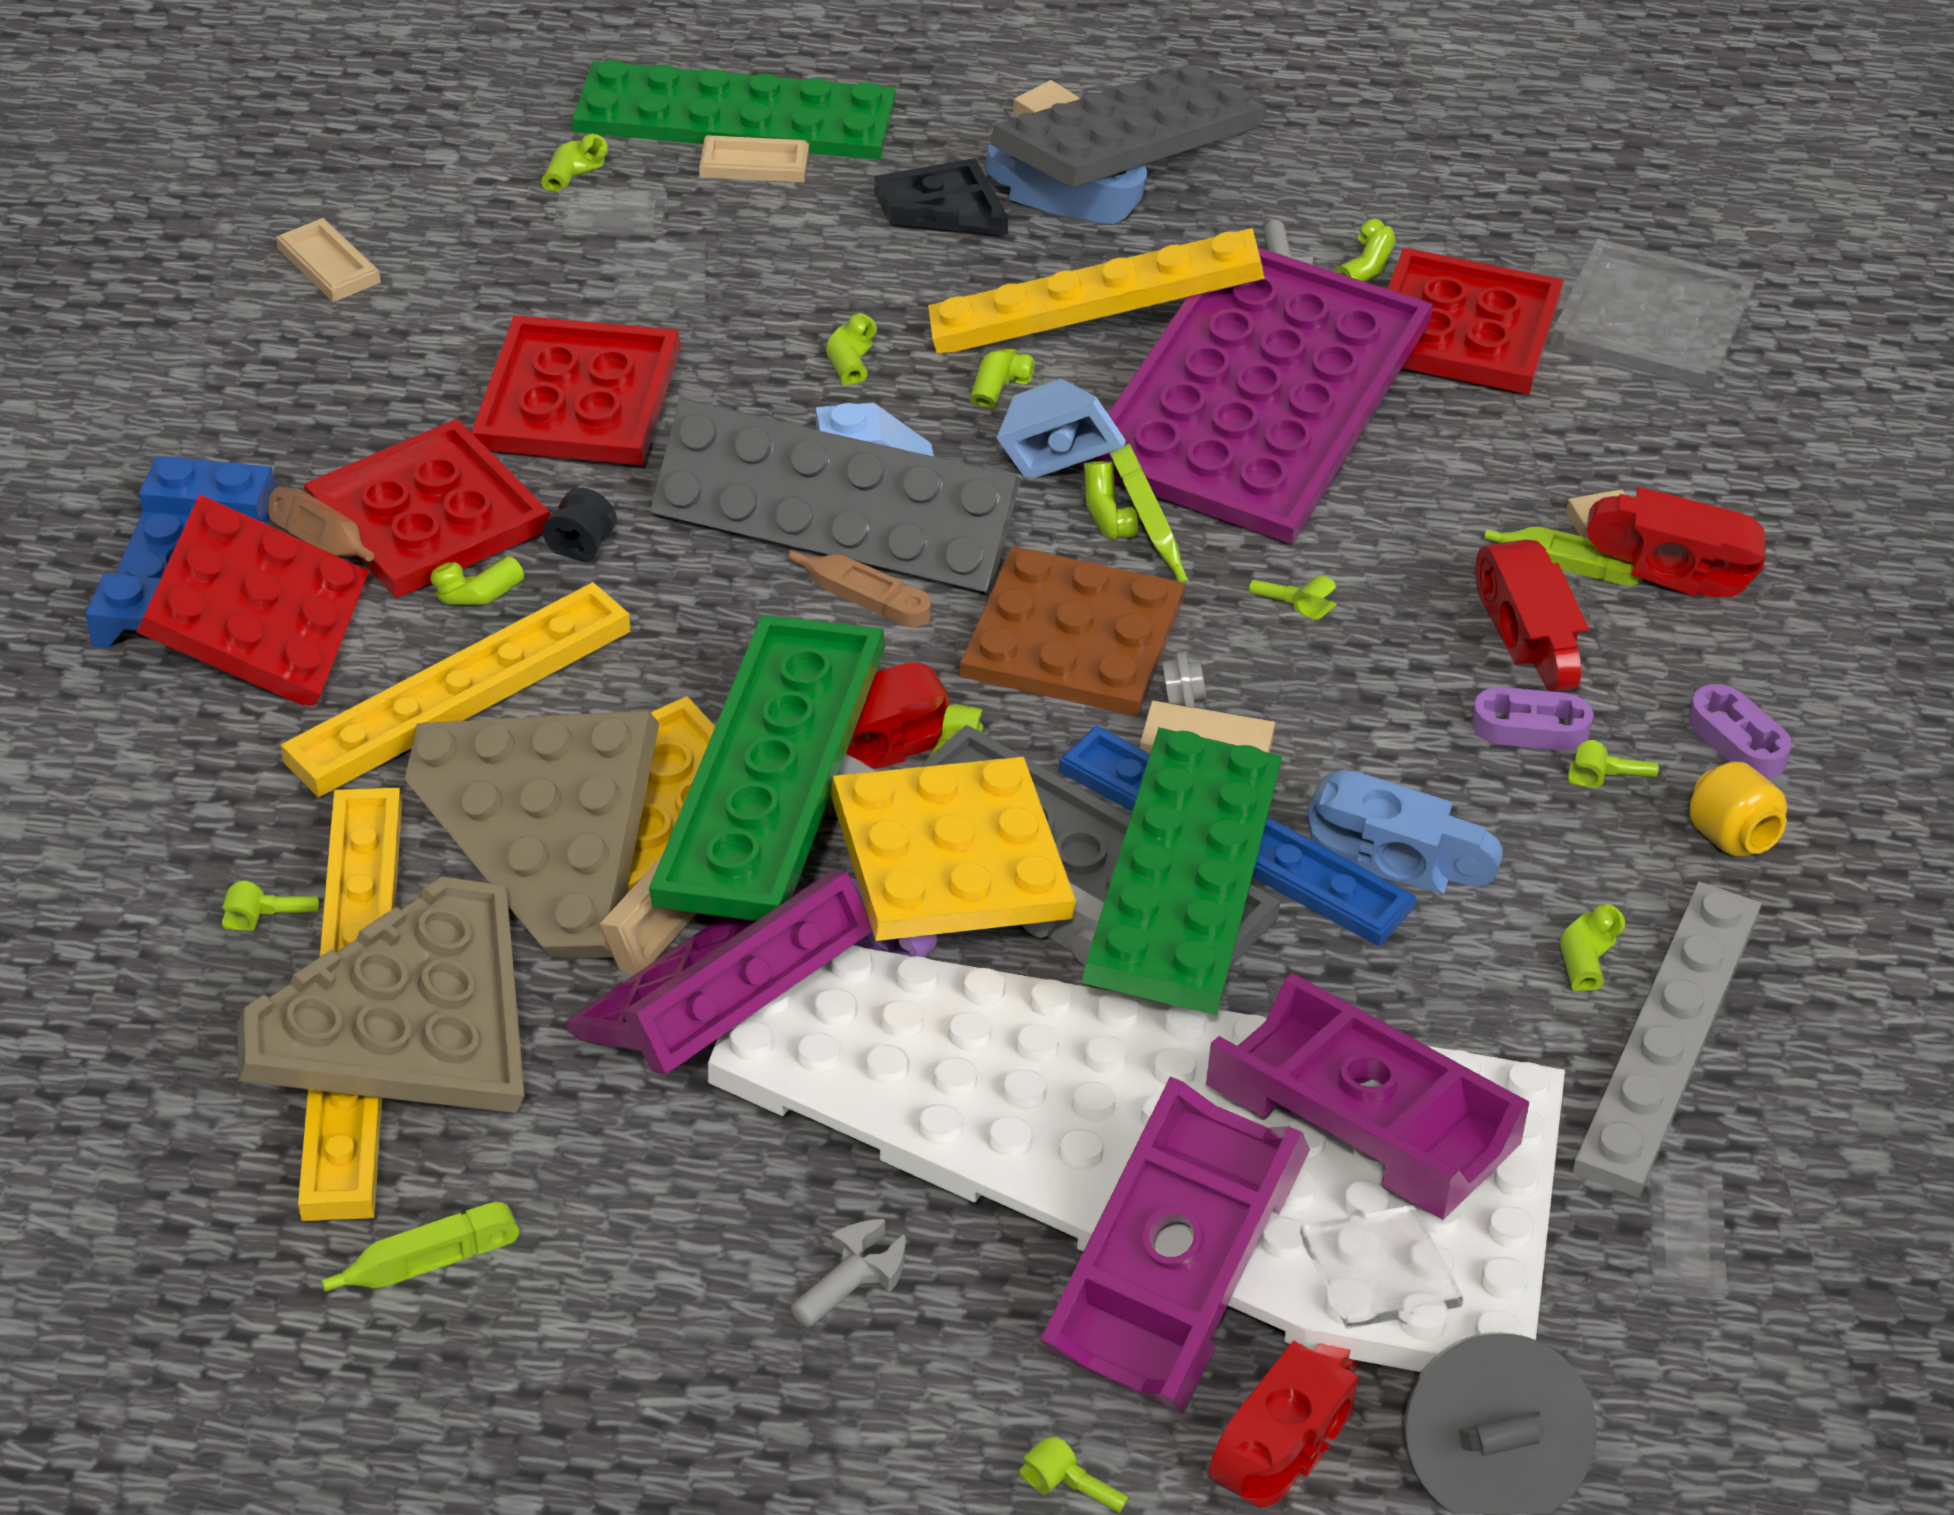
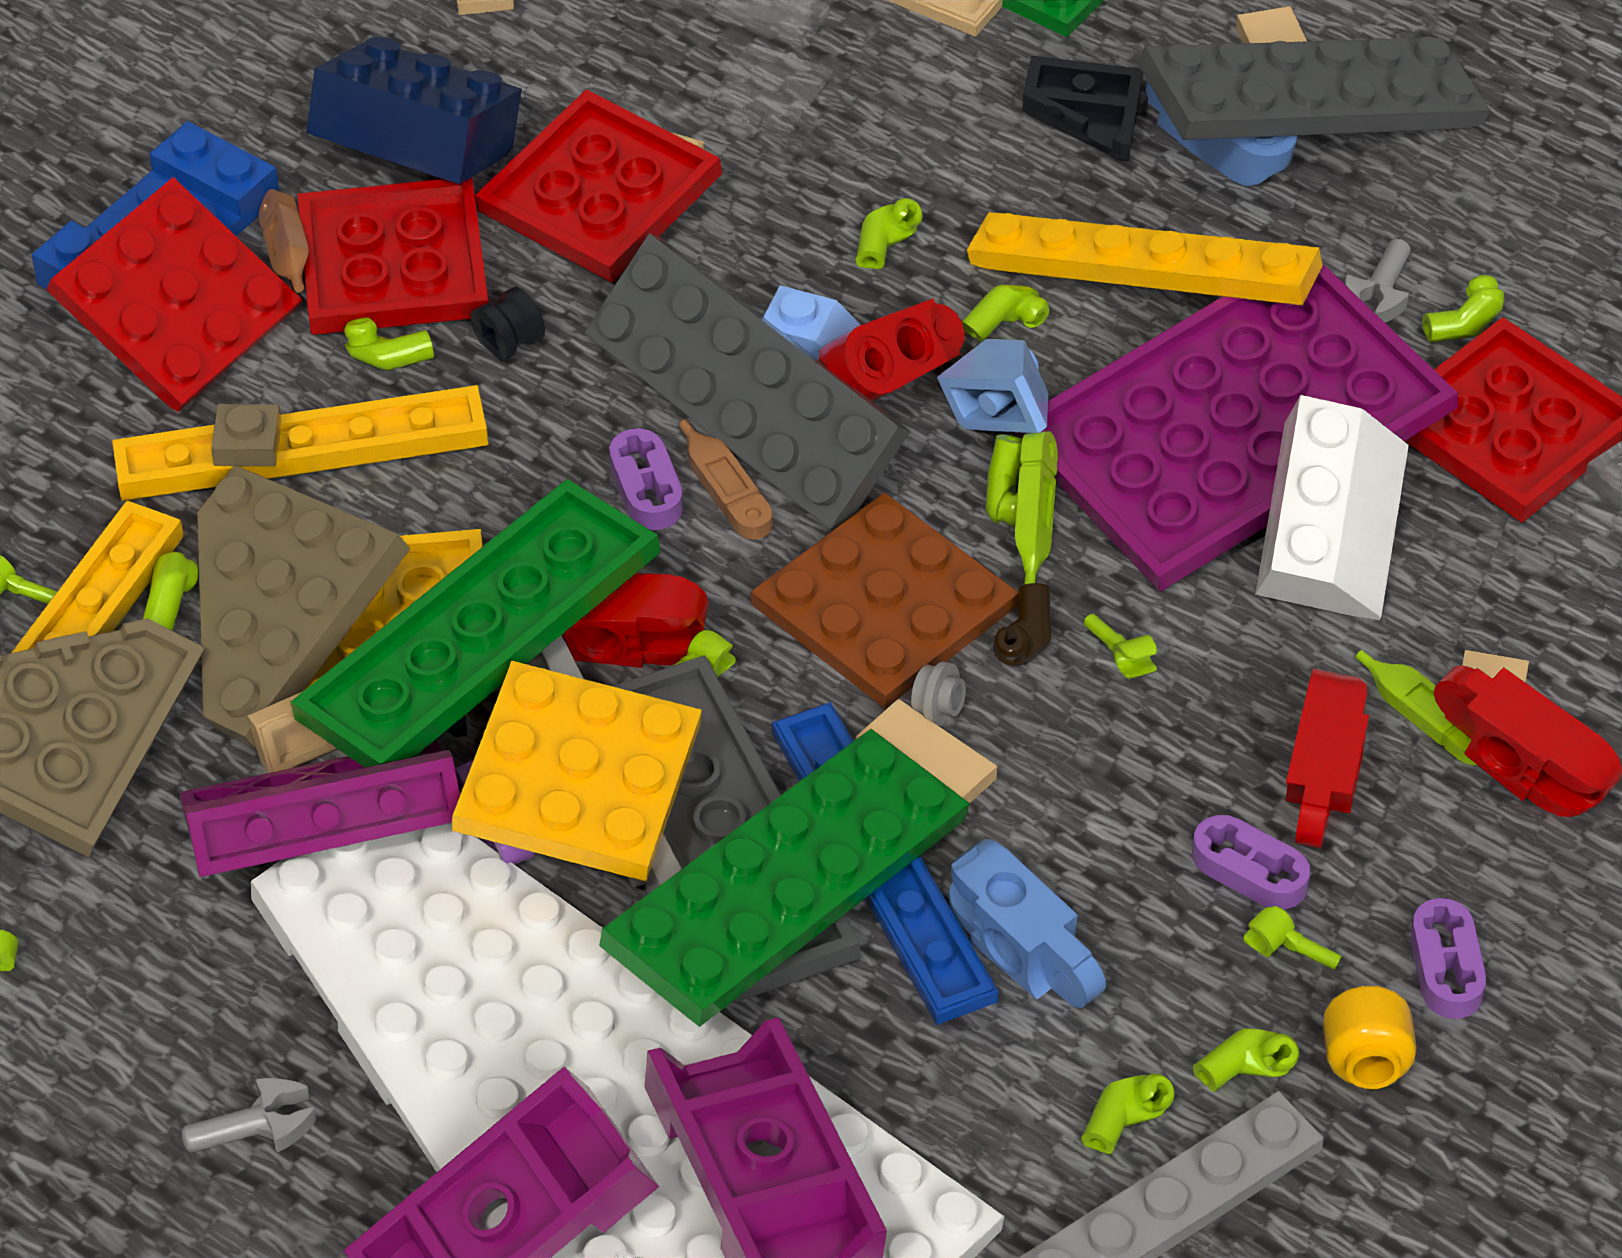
camera: 30 degrees right, 5 degrees up
(370, 377) = (414, 109): none -> dark blue brick
(414, 693) = (246, 435): none -> dark tan plate
(426, 846) = (170, 578): none -> lime arm
(800, 601) = (634, 481): none -> medium lavender beam
(947, 425) = (895, 348): none -> red piece
(1214, 610) = (1030, 632): none -> dark brown arm
(1395, 424) = (1333, 510): none -> white slope
(1651, 863) = (1247, 1053): none -> lime arm

